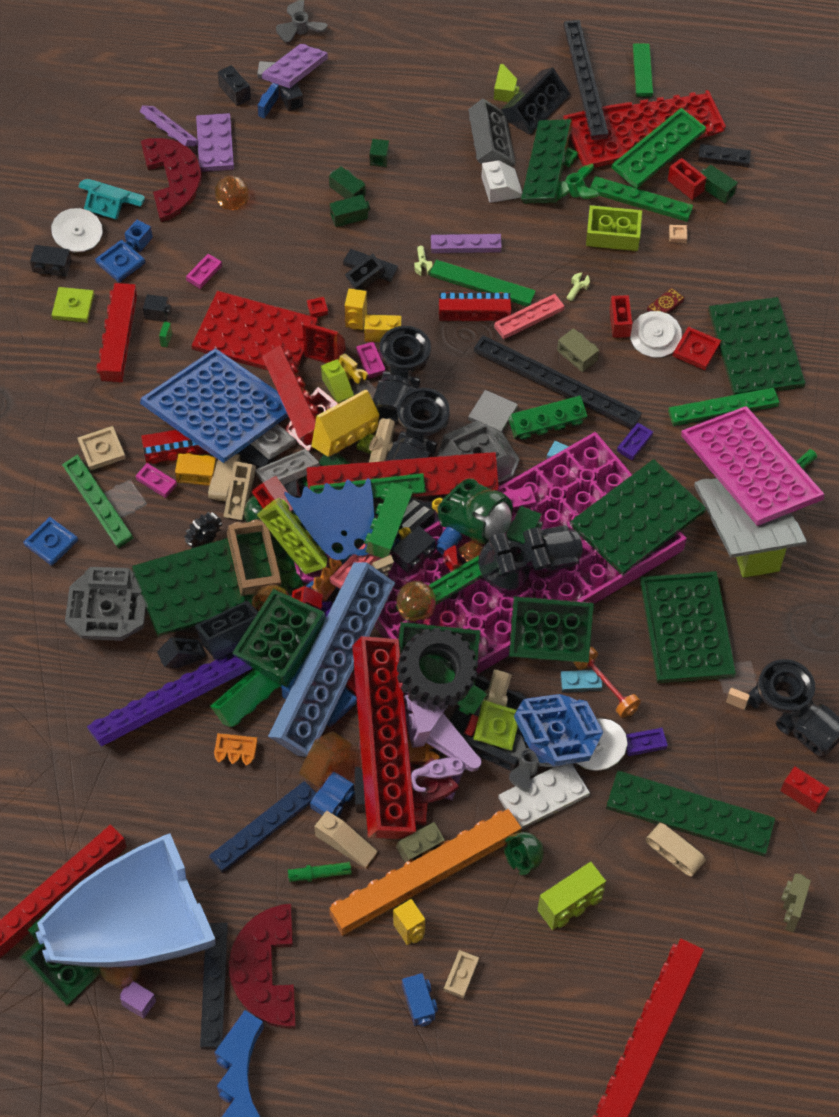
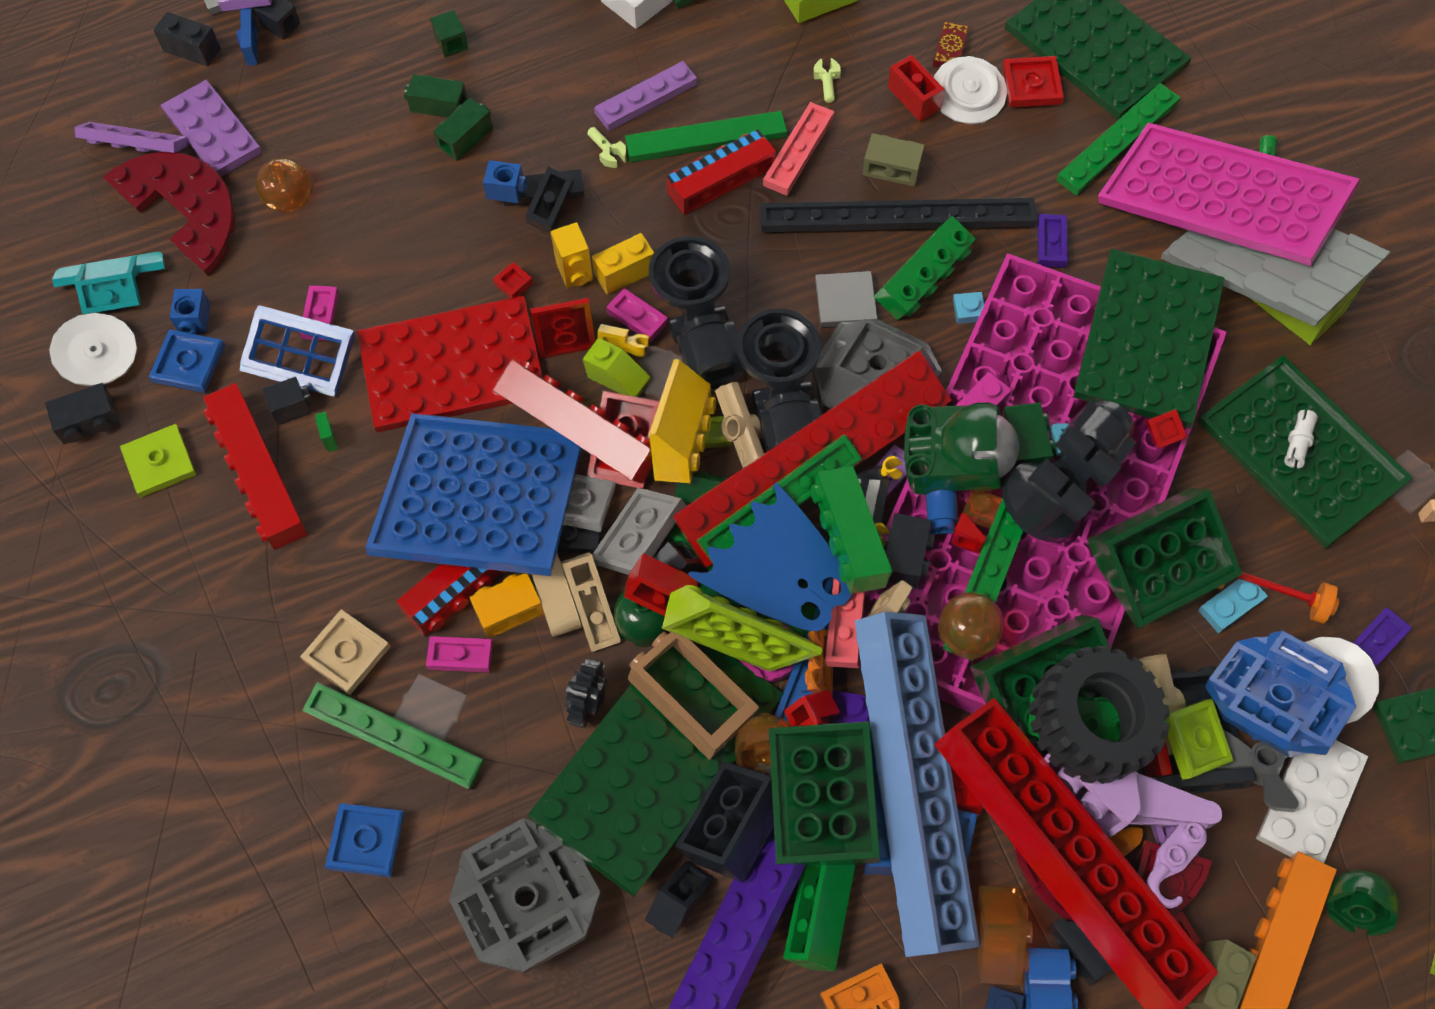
camera: 30 degrees left, 5 degrees up
(190, 273) = (306, 326): none -> piece
(348, 250) = (504, 181): none -> blue brick
(604, 566) = (1166, 429): none -> red plate
(684, 617) = (1300, 439): none -> white pin

